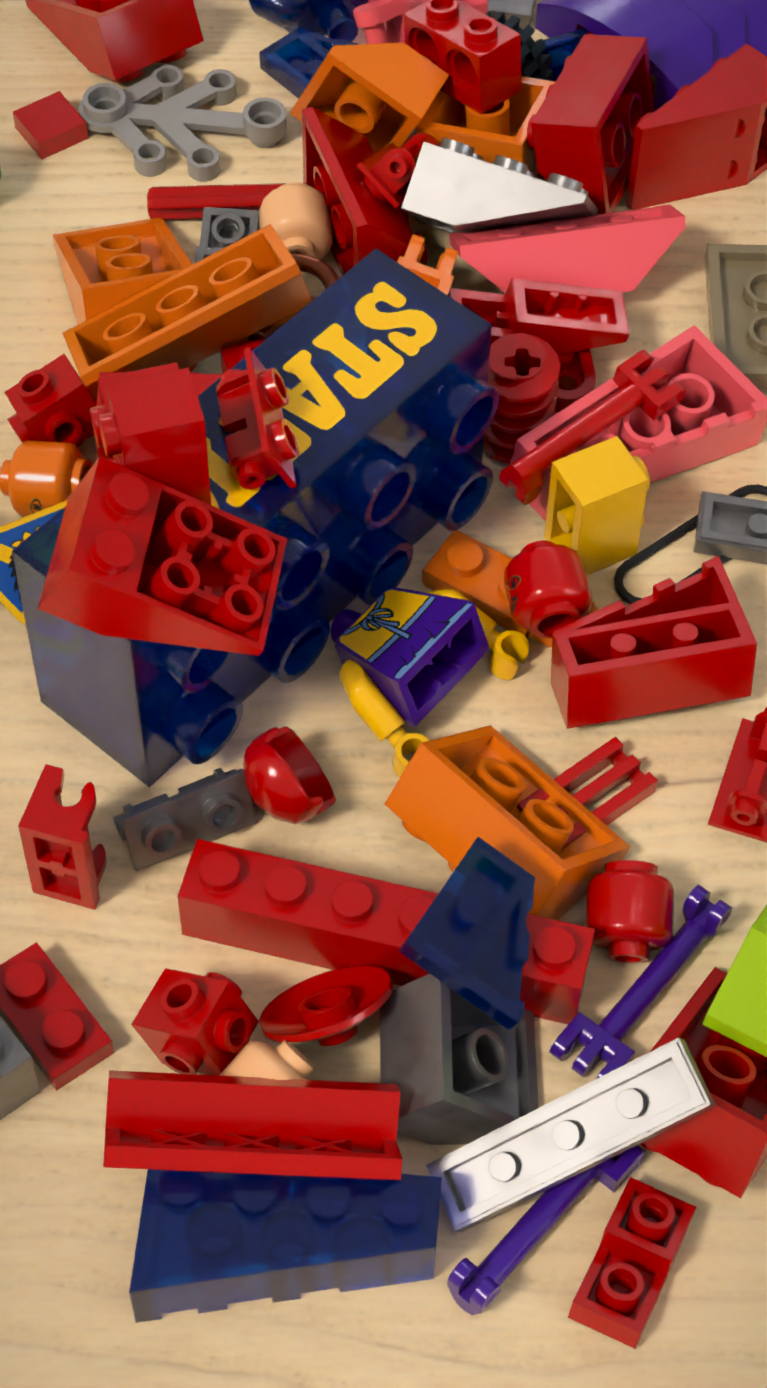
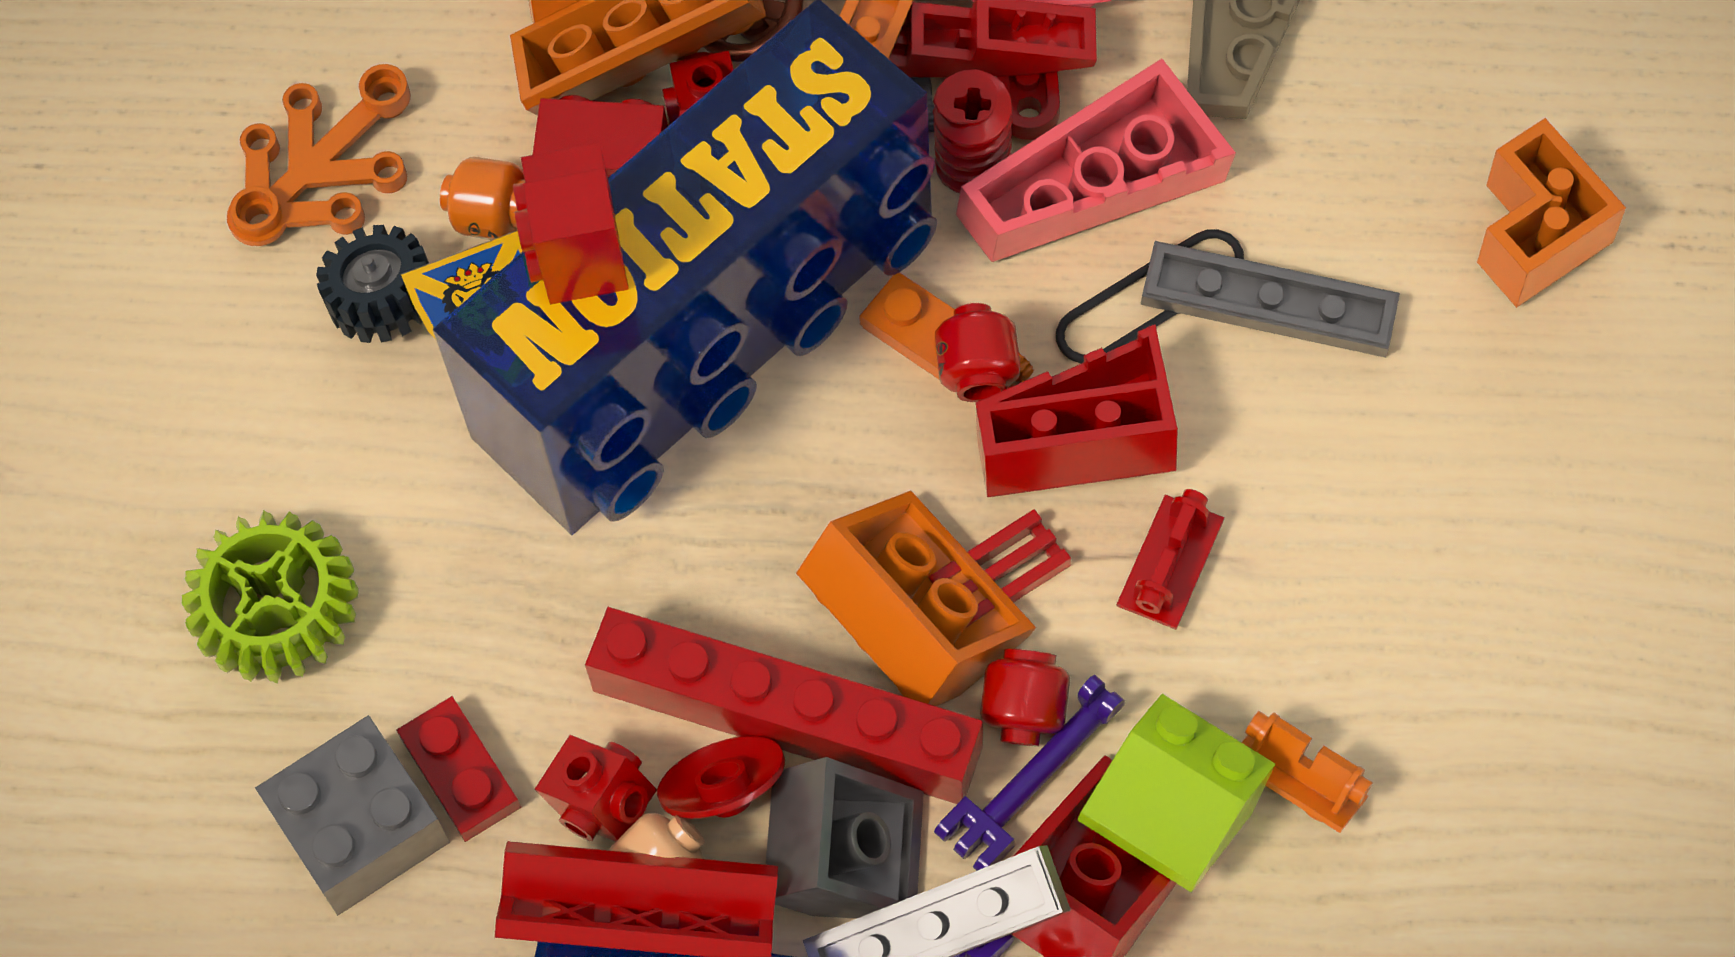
camera: 10 degrees right, 10 degrees up
(52, 405) = (493, 119): red brick -> none
(59, 842) = (474, 603): red hinge -> none
(161, 566) = (574, 360): red slope -> none
(174, 823) = (585, 582): flat silver hinge -> none
(255, 401) = (678, 178): red hinge -> none
(286, 777) = (703, 538): red hair -> none
(411, 653) = (836, 413): torso -> none
(478, 932) = (864, 723): clear blue wing -> none
(598, 503) = (1039, 260): yellow brick -> none
(634, 392) = (1091, 137): red hinge -> none

